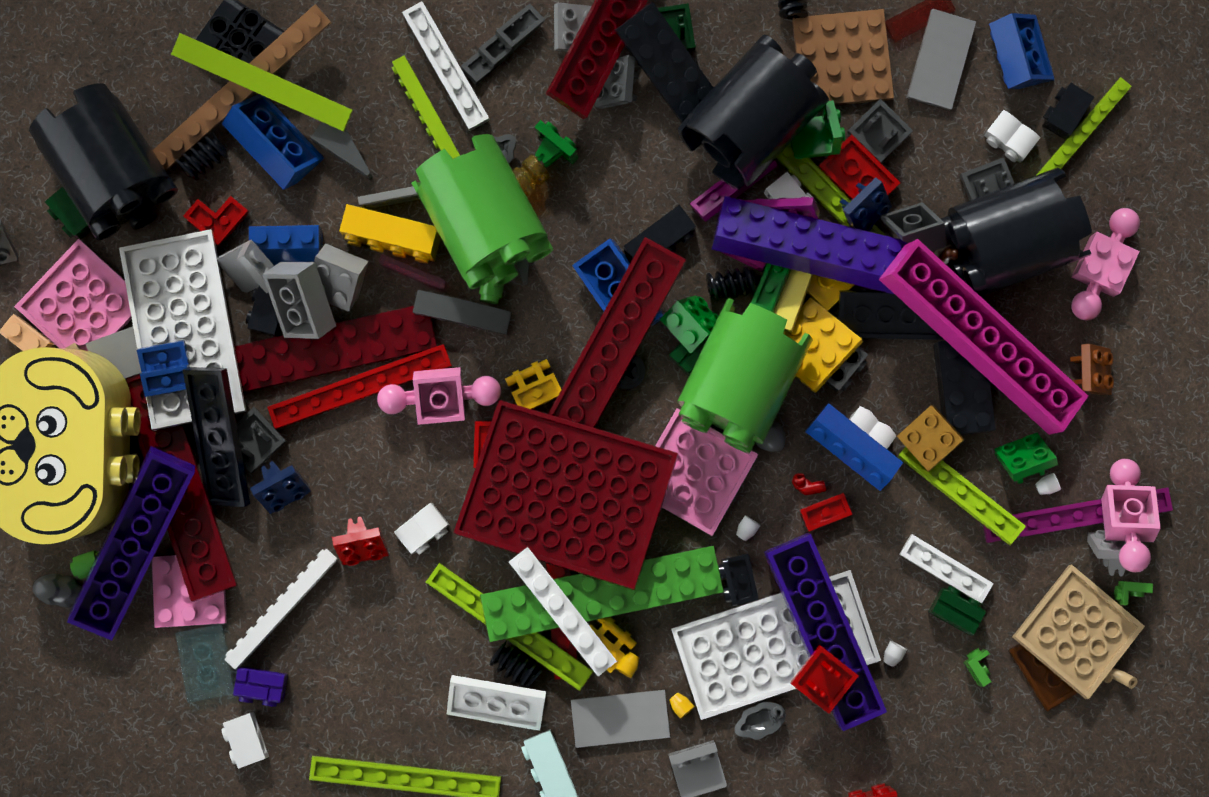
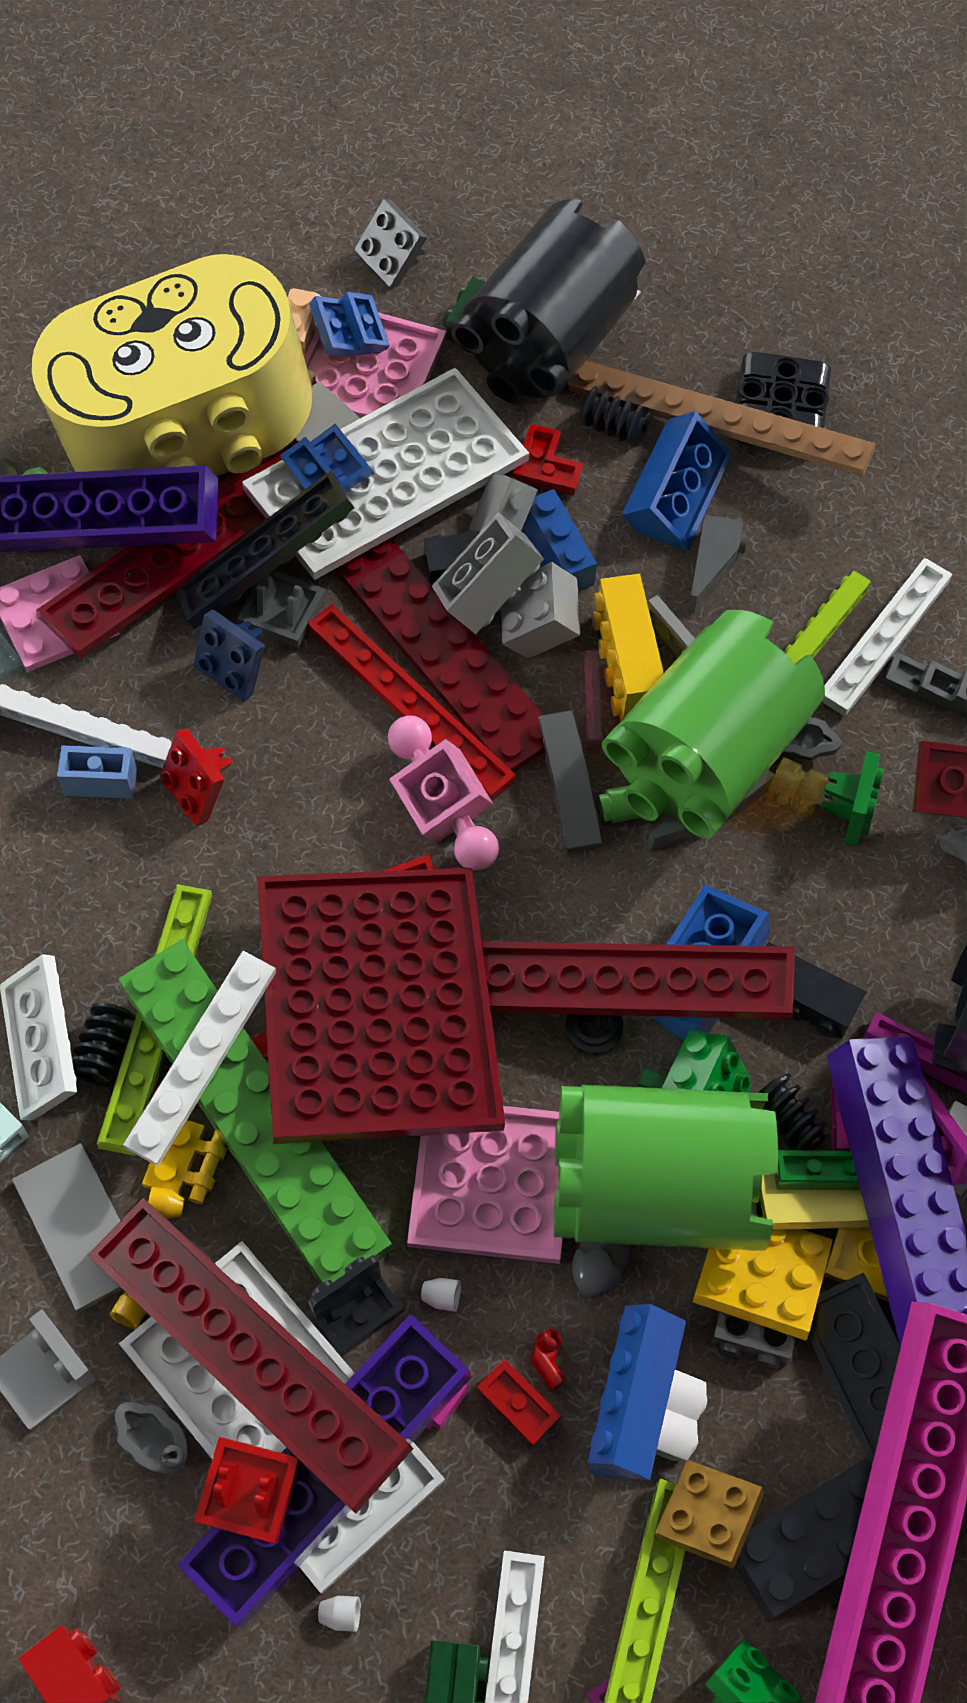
camera: 65 degrees right, 20 degrees down
(48, 304) = (349, 324): none -> blue slope
(261, 82) = (743, 432): lime tile -> none
(328, 604) = (97, 772): none -> medium blue brick
(422, 529) = (248, 848): white brick -> none
(537, 392) = (505, 918): yellow plate -> none
(744, 651) = (252, 1355): none -> dark red plate

